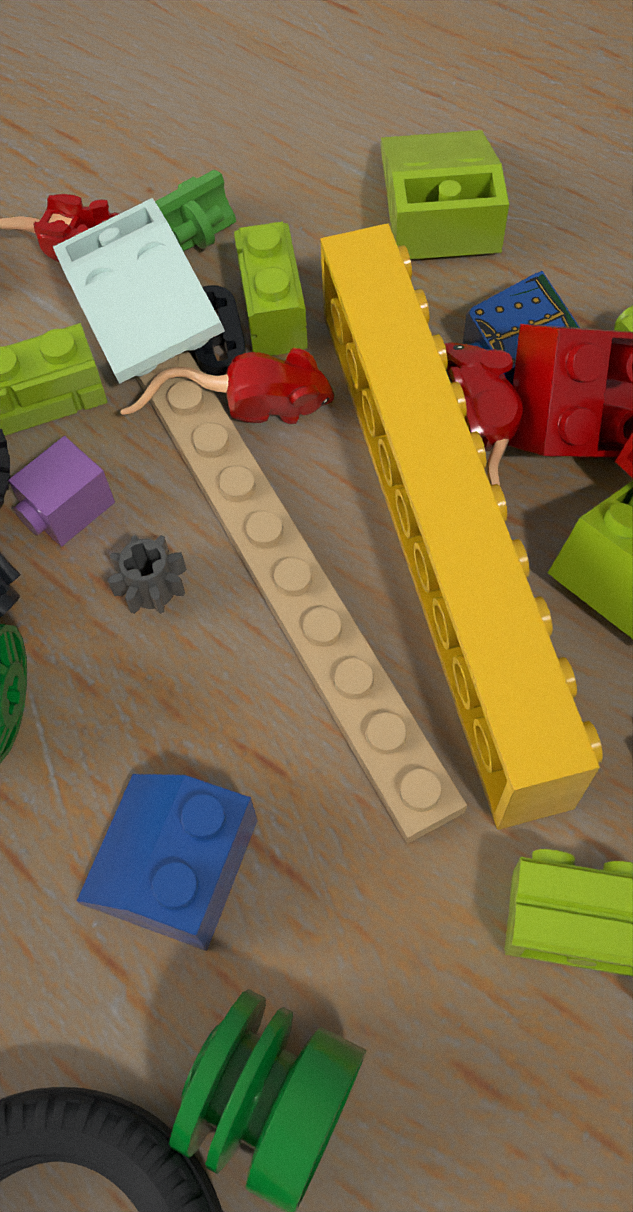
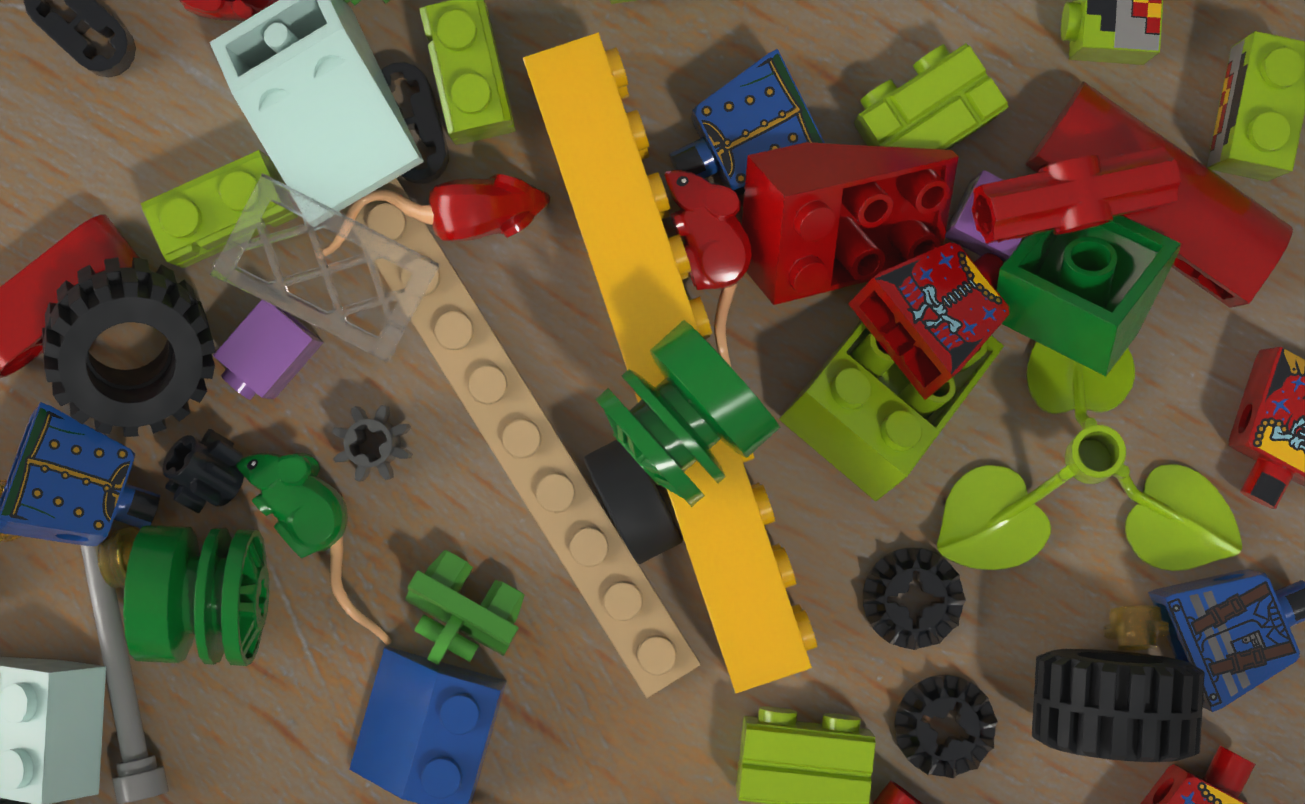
camera: 10 degrees left, 25 degrees up
(75, 635) = (308, 514): none -> green animal
(122, 365) = (316, 217): none -> clear window
(214, 738) = (439, 596): none -> bright green hips
(404, 623) = (633, 502): none -> black tyre
(470, 476) = (687, 413): none -> green wheel

